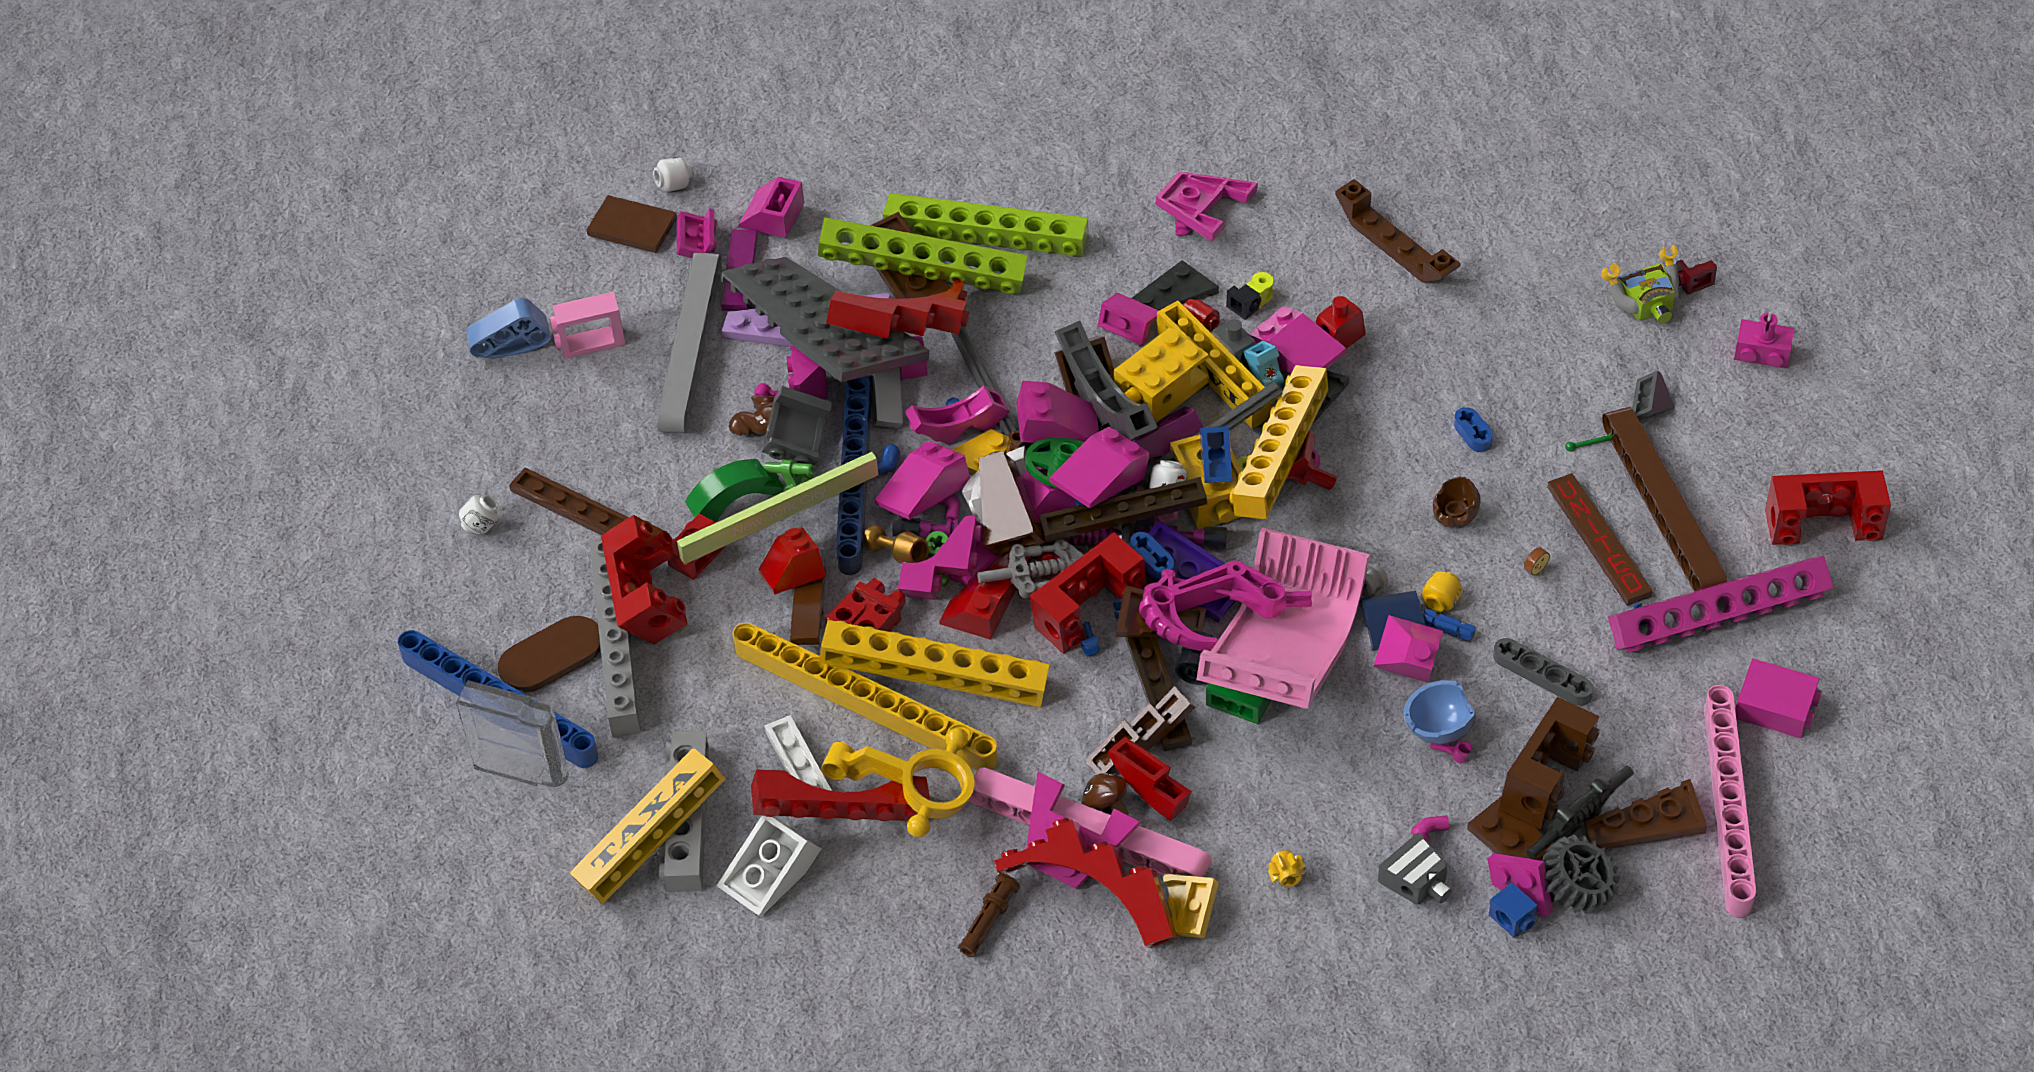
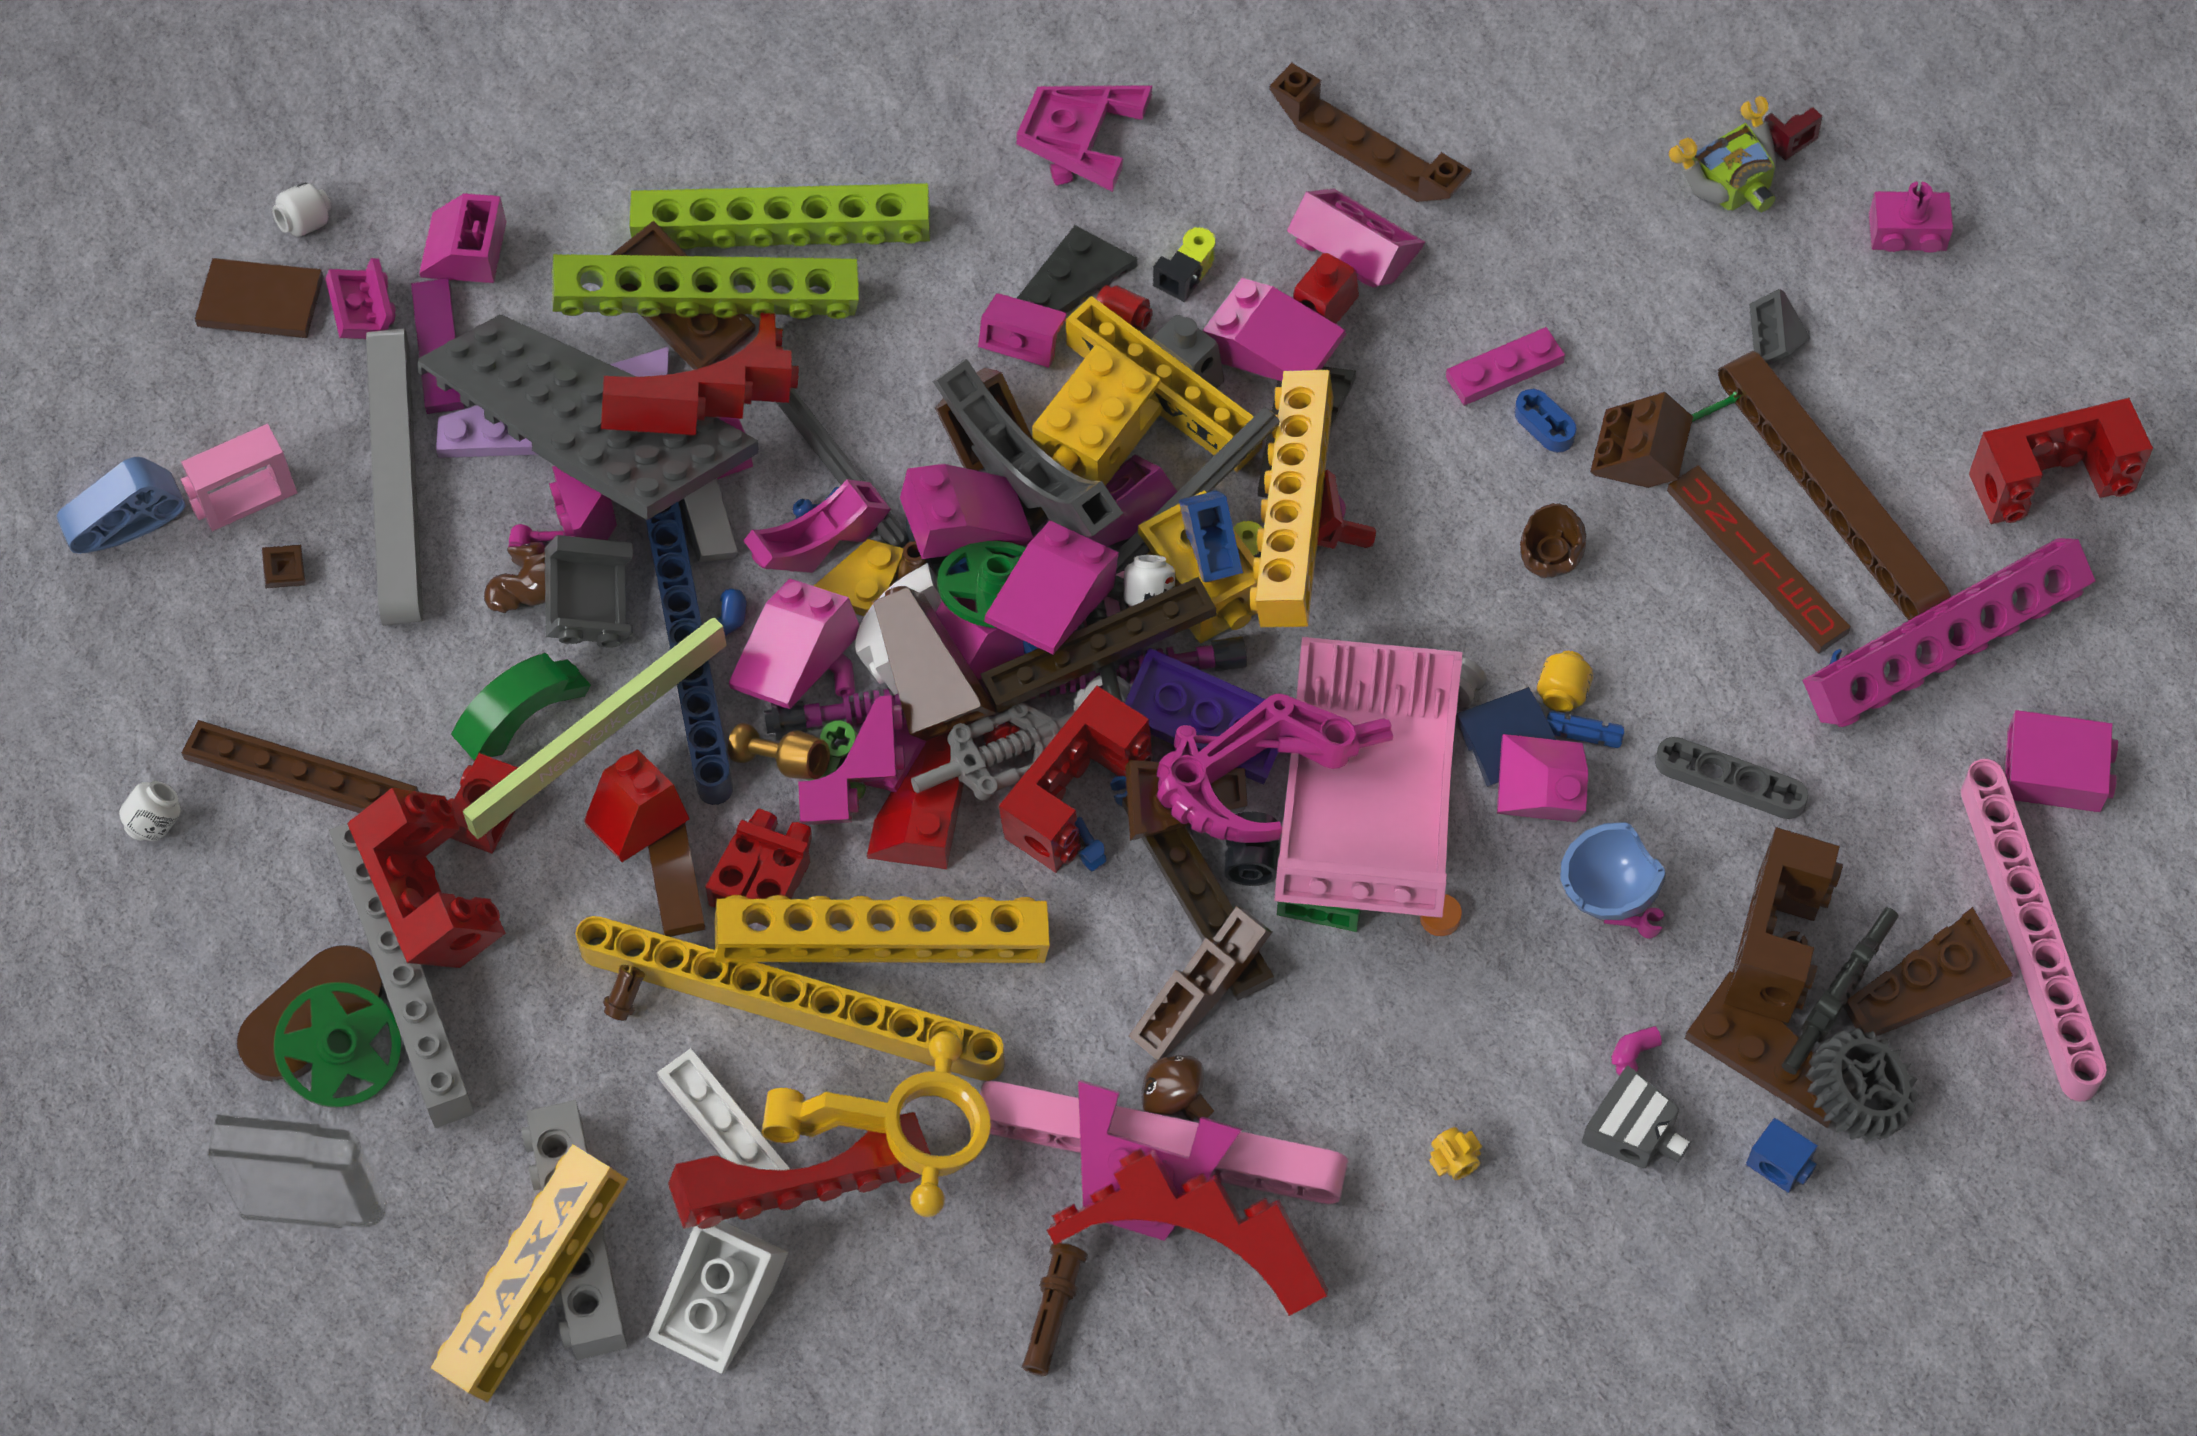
camera: 15 degrees left, 10 degrees up
(454, 672) = (234, 1091): blue beam -> none
(562, 672) = (337, 1044): none -> green wheel
(603, 385) = (283, 566): none -> reddish brown tile
(754, 676) = (623, 993): none -> reddish brown pin
(792, 472) = (605, 668): bright green piece -> none
(1149, 778) = (1231, 1052): red slope -> none
(1152, 554) = (1154, 705): blue beam -> none
(1190, 903) = (1335, 1234): yellow wing -> none
(1264, 364) = (1238, 378): medium azure leg -> none
(1317, 722) = (1448, 923): none -> orange tile
(1374, 295) = (1354, 235): none -> dark pink slope
(1454, 392) = (1505, 366): none -> dark pink plate
(1526, 875) = (1788, 1101): dark pink wing -> none
(1536, 561) = (1683, 610): dark orange tile -> none
(1537, 451) = (1643, 441): none -> reddish brown slope

